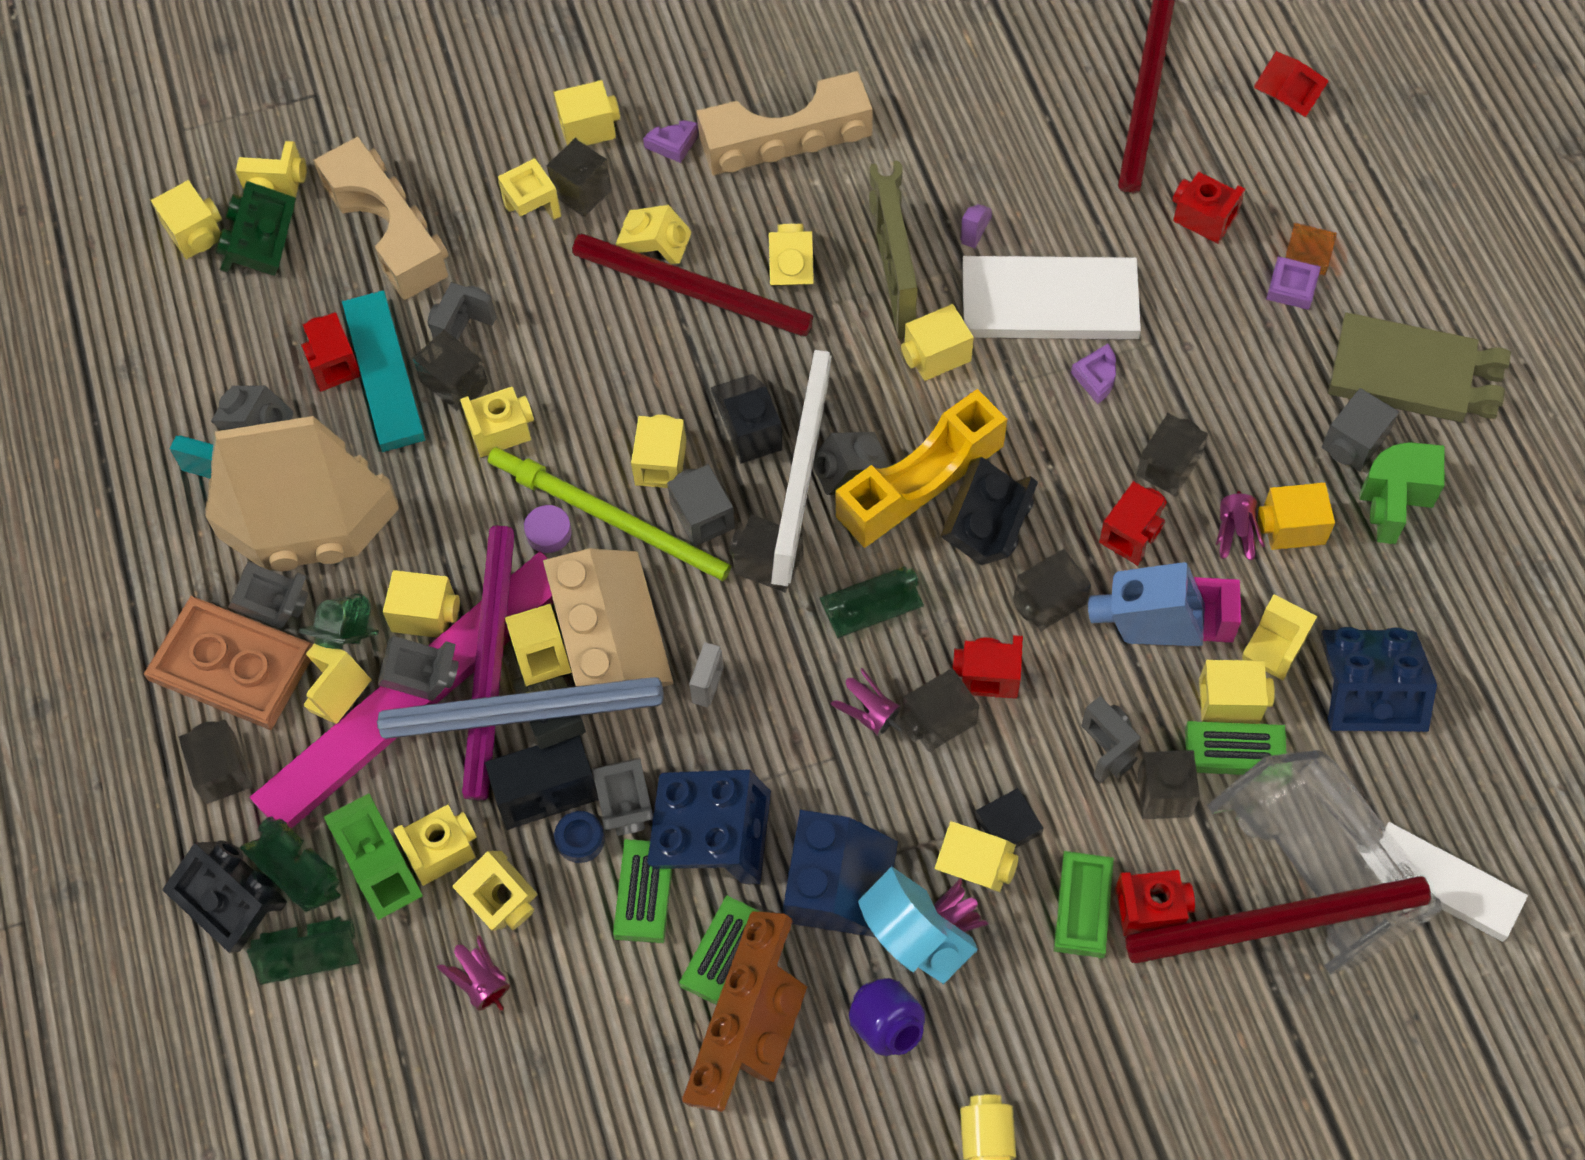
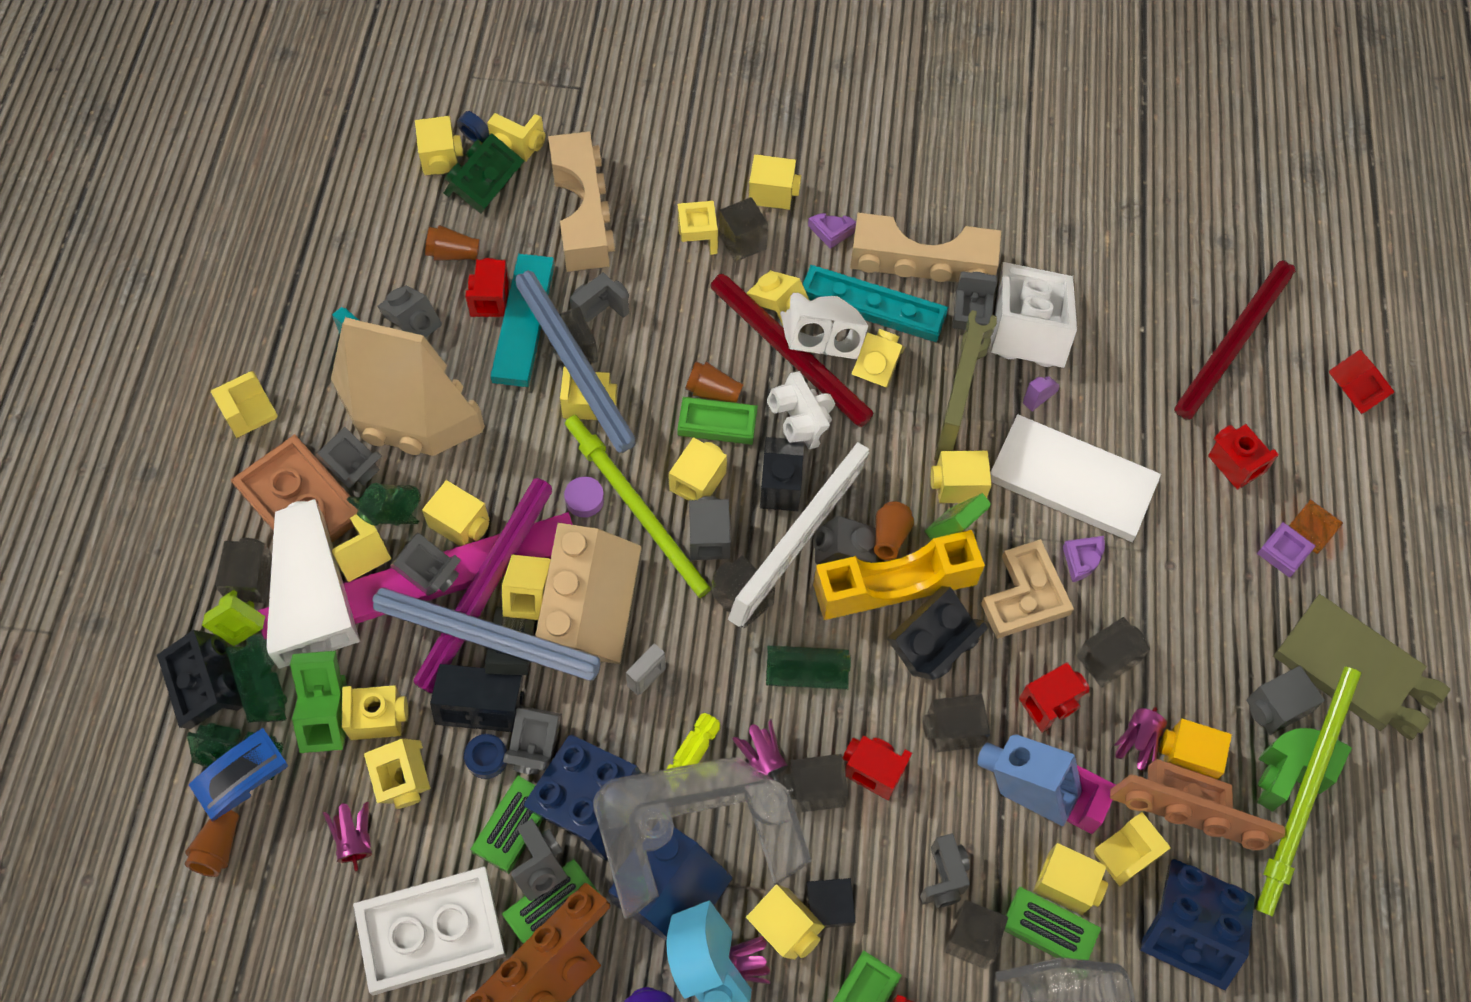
camera: 20 degrees right, 0 degrees up
(115, 587) = (244, 404): none -> light yellow panel
(218, 183) = (473, 127): none -> dark blue tile
(231, 814) = (233, 619): none -> lime tile
(260, 322) = (450, 245): none -> dark orange cone
(300, 747) = (306, 588): none -> white slope
(325, 966) = (237, 773): none -> blue slope
(332, 1053) = (212, 846): none -> dark orange cone
(471, 387) = (575, 362): none -> sand blue axle
(611, 1033) = (428, 930): none -> white plate
(628, 354) = (712, 383): none -> dark orange cone
(651, 391) = (717, 420): none -> bright green tile
(702, 915) = (543, 870): none -> dark grey bracket
(713, 228) = (821, 312): none -> white piece
(739, 339) = (806, 409): none -> white hips
(758, 201) = (879, 303): none -> teal tile
(786, 808) = (639, 810): none -> clear windscreen
(793, 737) = (696, 741): none -> neon yellow axle
(857, 149) = (974, 293): none -> dark grey bracket
(891, 423) = (892, 527): none -> dark orange cone
(935, 145) = (1034, 315): none -> white slope
(955, 383) = (958, 517): none -> bright green tile
(1068, 429) = (1036, 594): none -> tan plate
(1321, 563) = (1196, 802): none -> nougat bracket
(1427, 595) = (1279, 869): none -> lime bar

